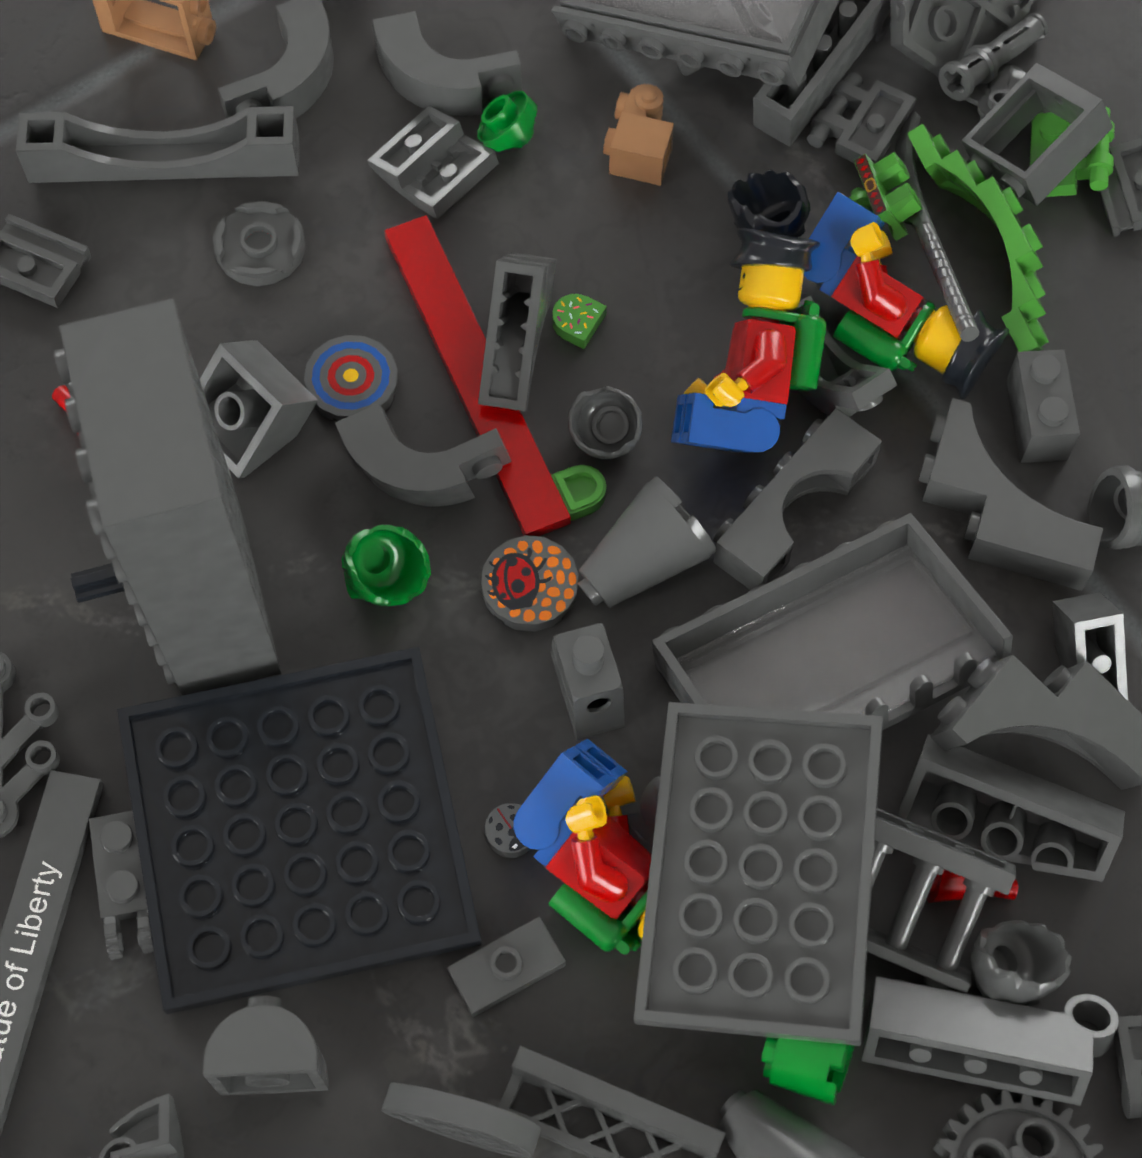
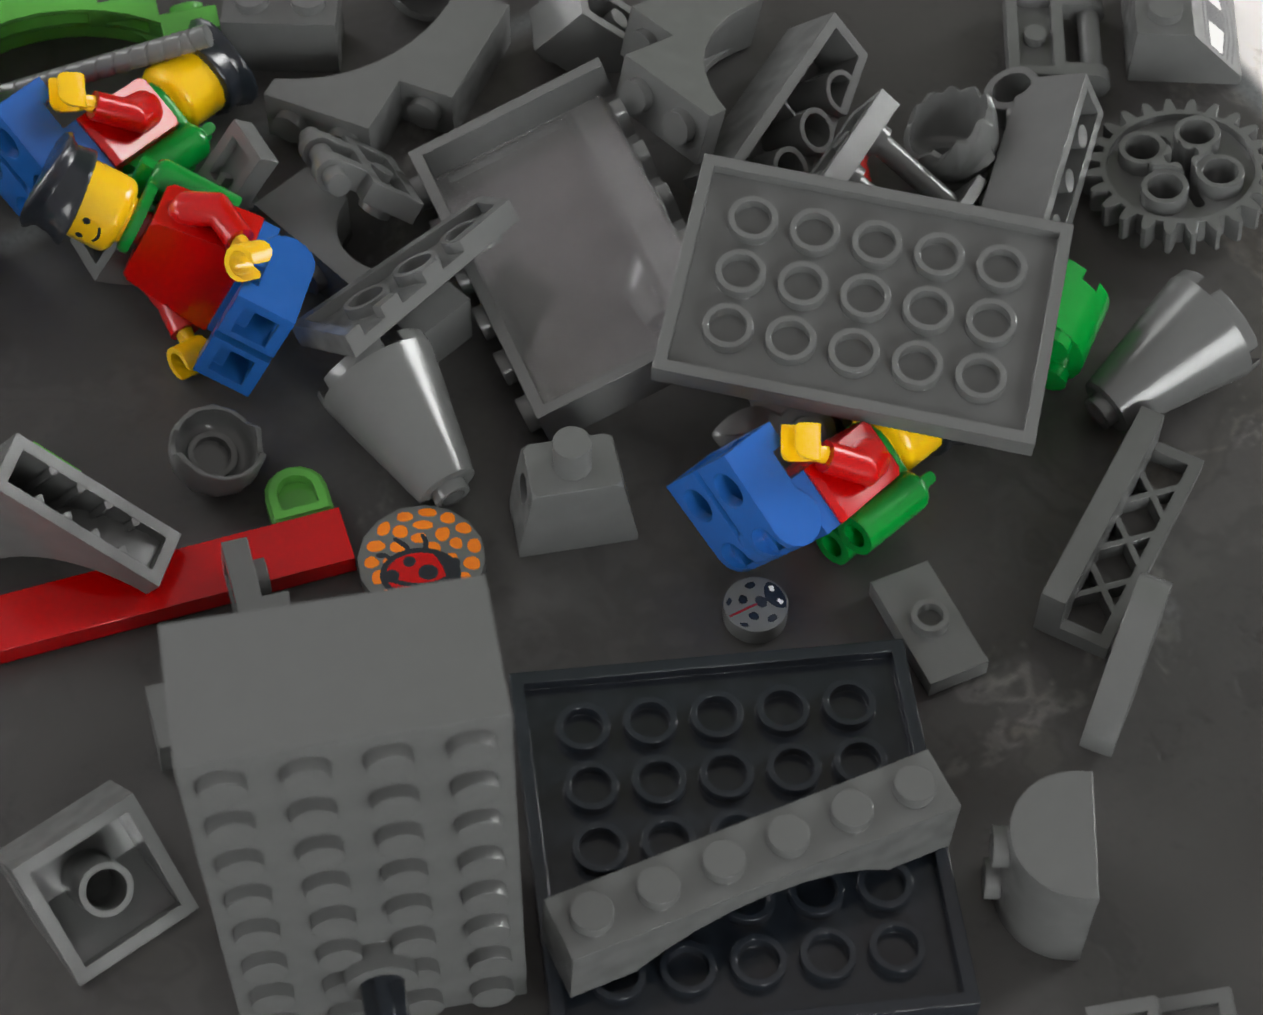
camera: 85 degrees left, 10 degrees down
(244, 827) = (644, 909): none -> dark grey arch
(351, 376) = (69, 749): tile -> none
(751, 515) = (392, 289): none -> dark grey wing
(885, 493) = (354, 166): none -> dark grey plate

